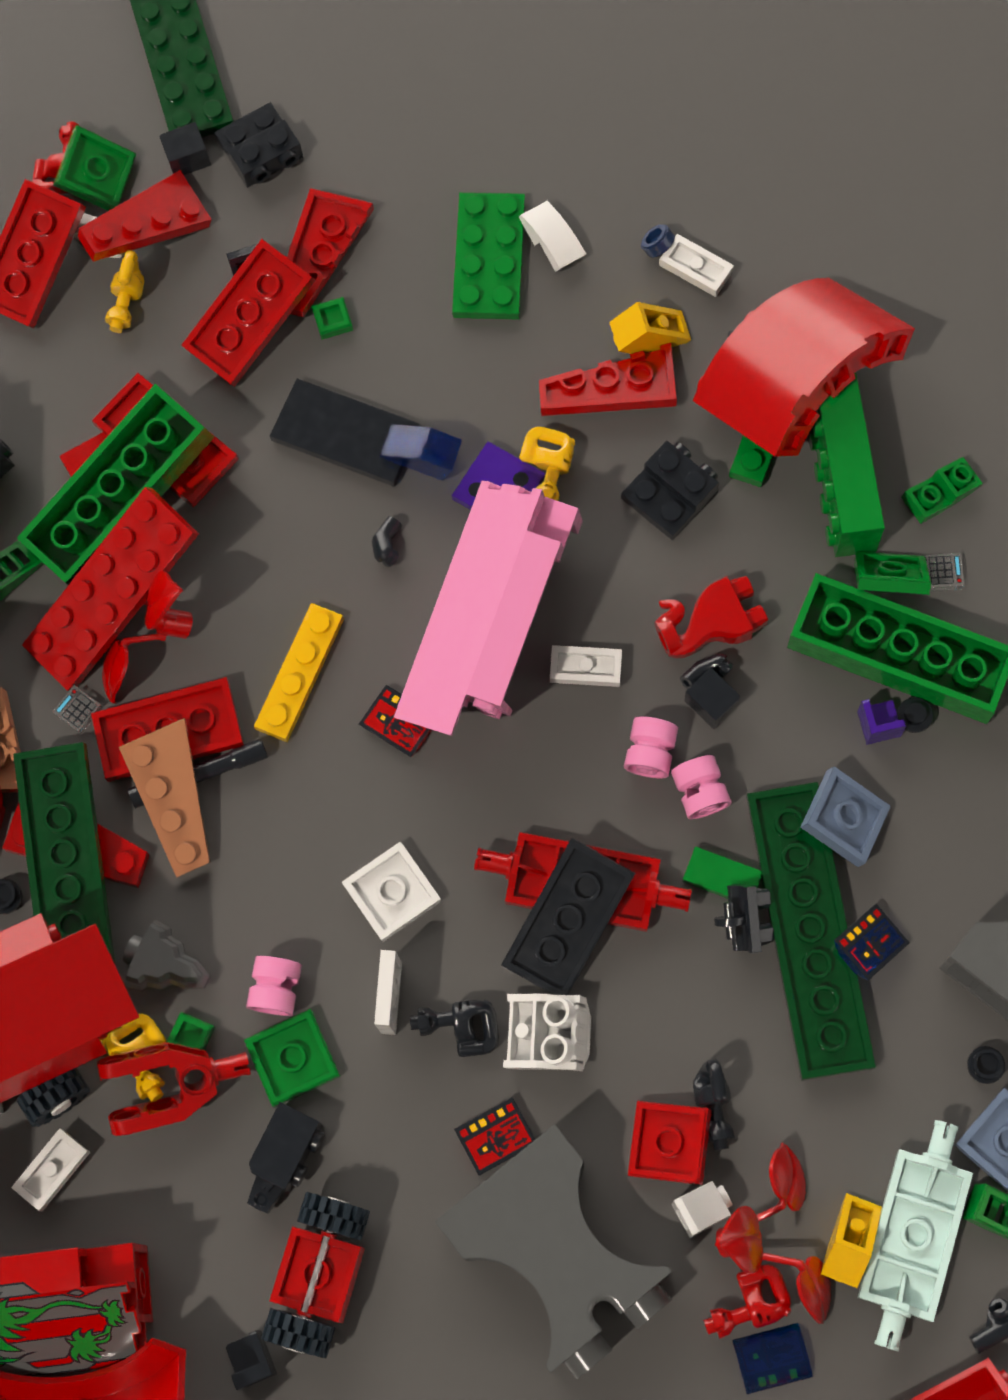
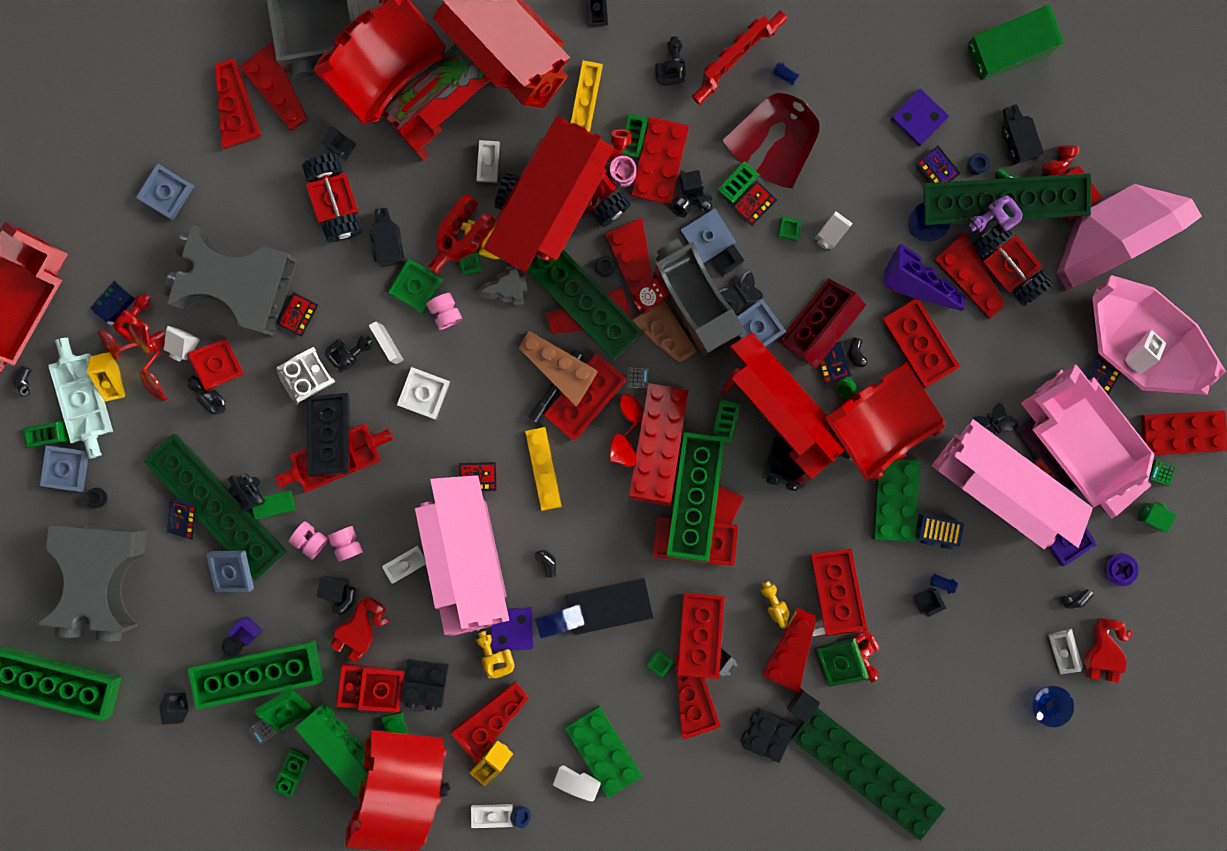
camera: 135 degrees right, 15 degrees up
(752, 532) = (369, 687): none -> red slope

